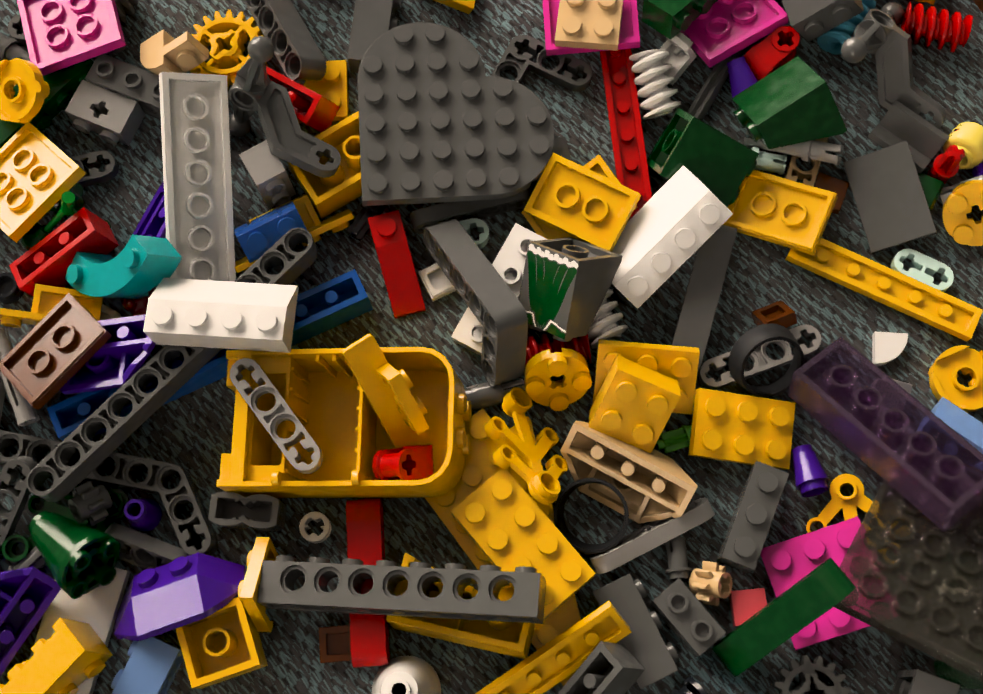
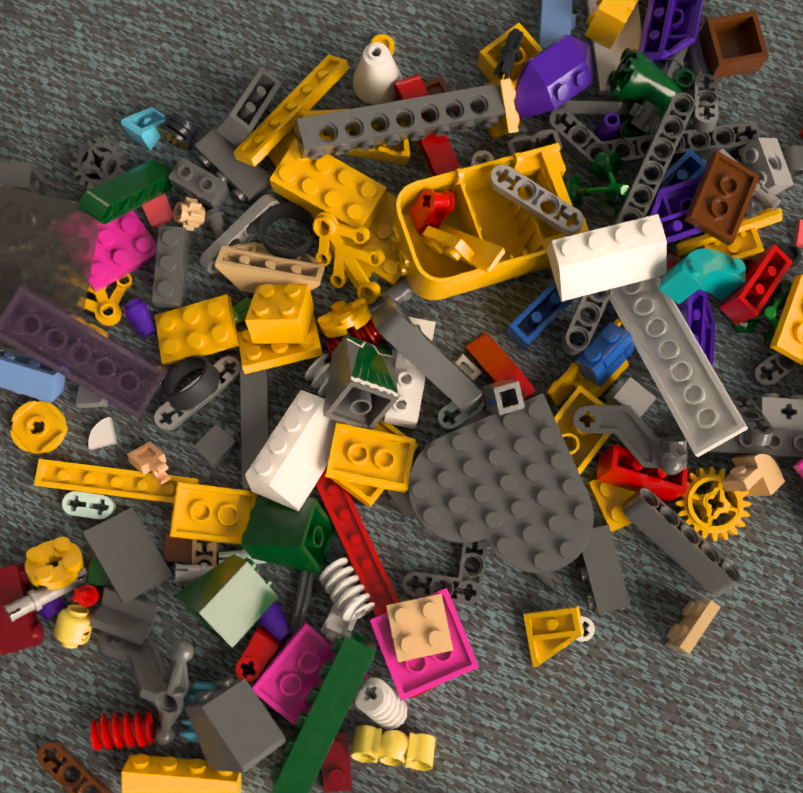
camera: 155 degrees right, 5 degrees up
(138, 122) = (759, 428): none -> dark grey beam
(179, 426) = (610, 196): none -> dark green plant
(224, 640) = (509, 54): none -> black axle
(408, 210) = (503, 396): none -> brick
(754, 286) = (217, 444): none -> dark grey brick
(775, 313) = (194, 425): reddish brown plate -> none
(839, 294) = (151, 459): none -> light nougat plate

